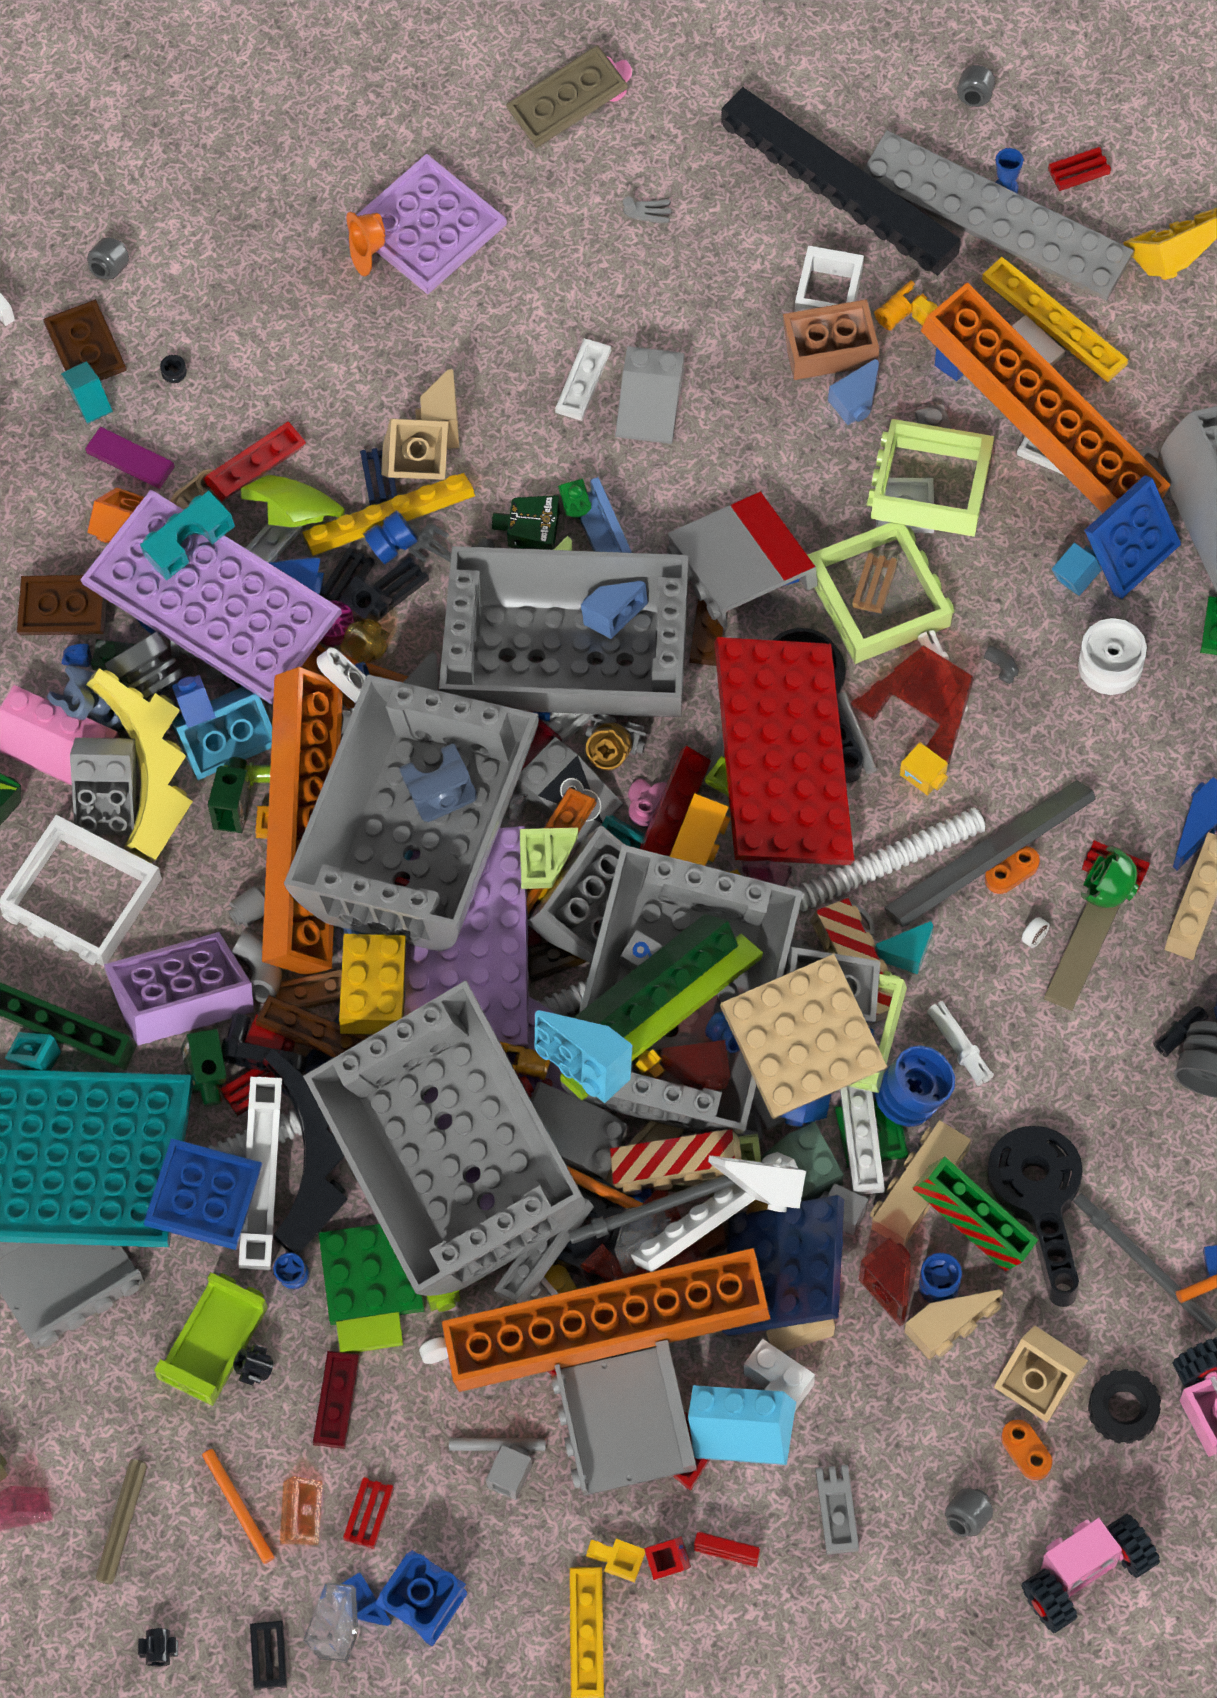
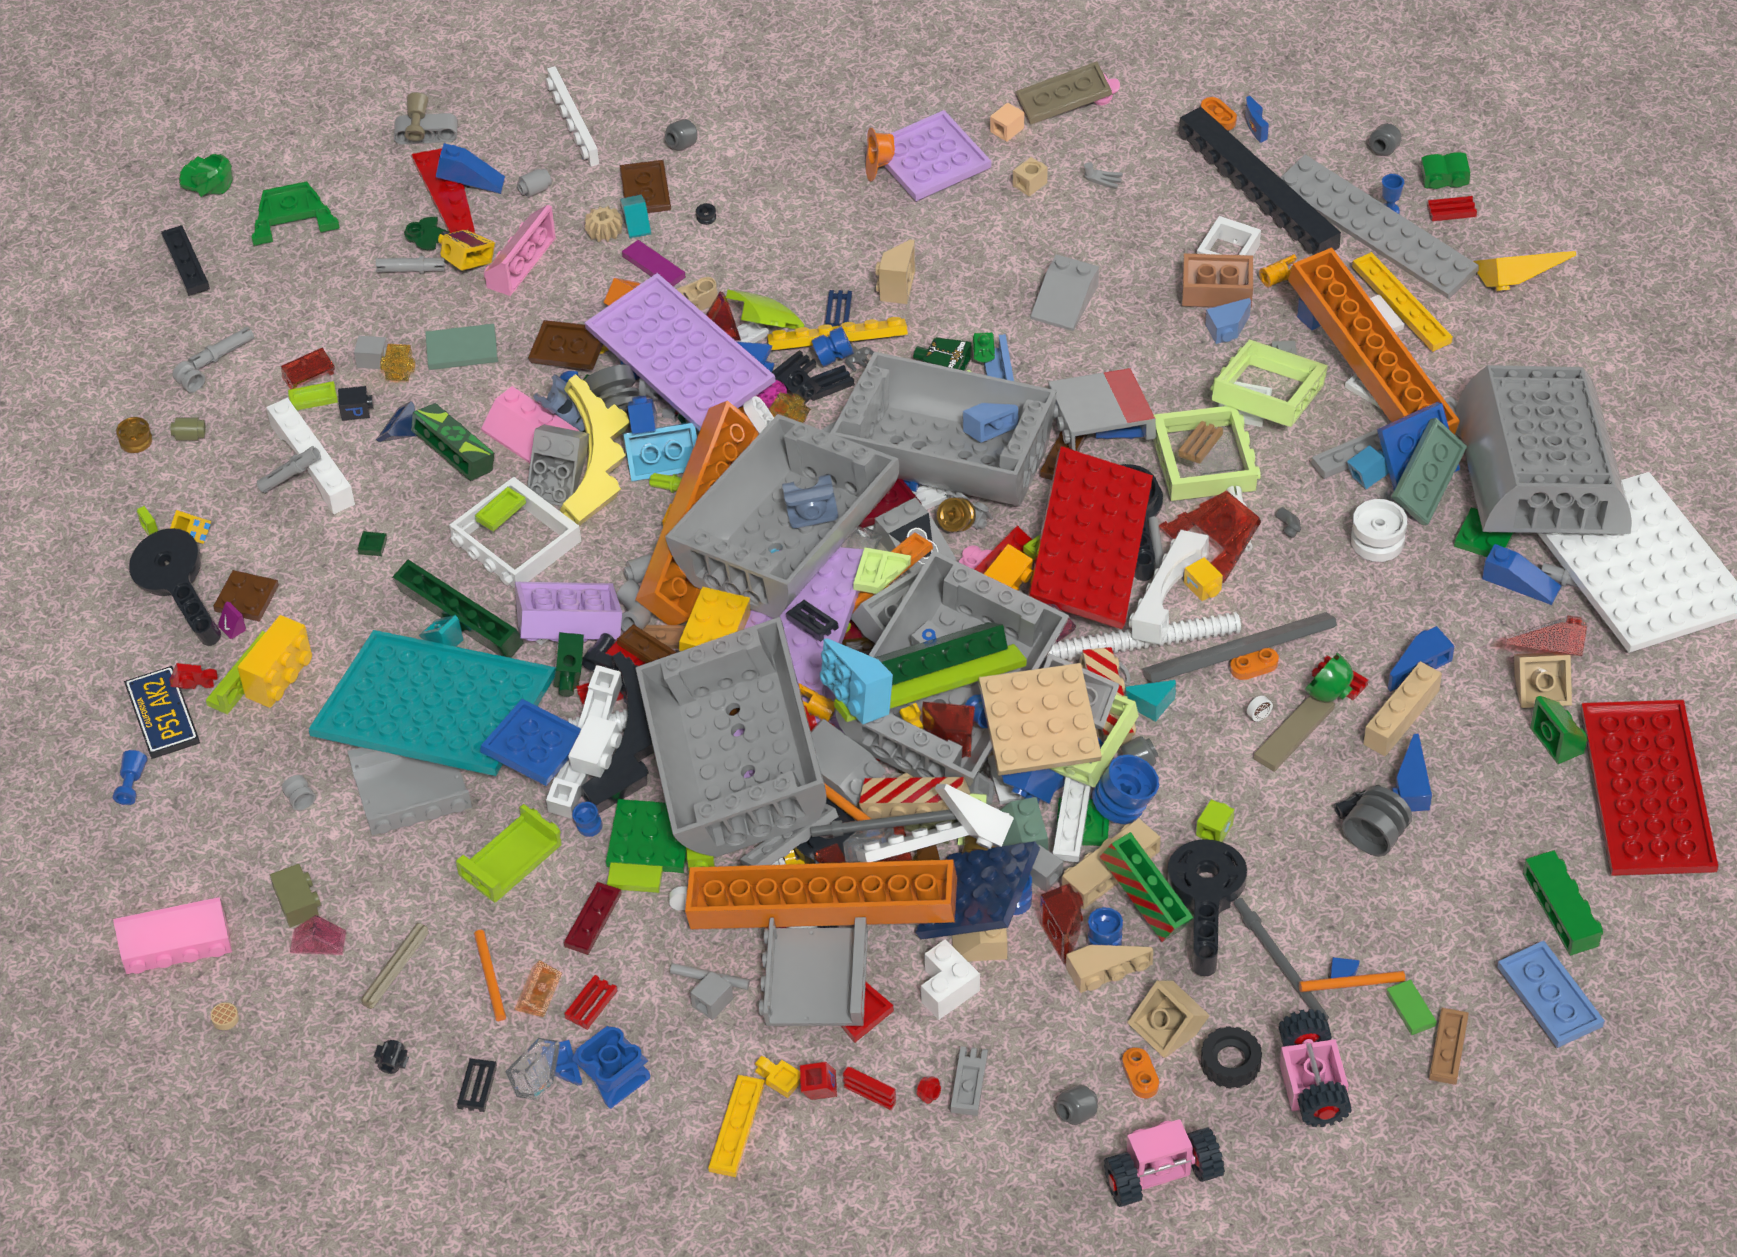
camera: 15 degrees right, 15 degrees down
(50, 413) = (603, 223): none -> tan gear
(54, 865) = (500, 509): none -> lime tile
(202, 517) = (686, 294): teal arch -> none
(230, 796) = (650, 492): dark green torso -> none
(246, 529) = (722, 316): none -> clear red slope
(253, 1364) = (535, 876): black gear -> none
(254, 461) = (746, 278): red plate -> none
(279, 1182) = (595, 746): none -> white brick
(415, 449) = (869, 289): tan slope -> none
(508, 959) = (809, 623): none -> black tile
(509, 154) = (1007, 122): none -> light nougat brick
(560, 240) = (1030, 176): none -> tan brick
(583, 379) = (1017, 276): white tile -> none
(741, 1424) = (907, 991): medium azure slope -> none
(766, 86) = (1220, 112): none -> orange plate
(794, 1533) = (928, 1089): none -> red plate
(807, 82) = (1254, 119): none -> blue slope
(884, 847) = (1151, 620): none -> white arch
(914, 1028) = (1142, 748): none -> dark grey head
(967, 1053) = (1177, 780): white pin -> none
(1025, 1099) = (1215, 821): none -> lime brick
(1042, 556) = (1335, 459): none -> light grey plate
(1059, 117) = (1445, 170): none -> green brick
(1153, 565) = (1429, 471): none -> sand green tile

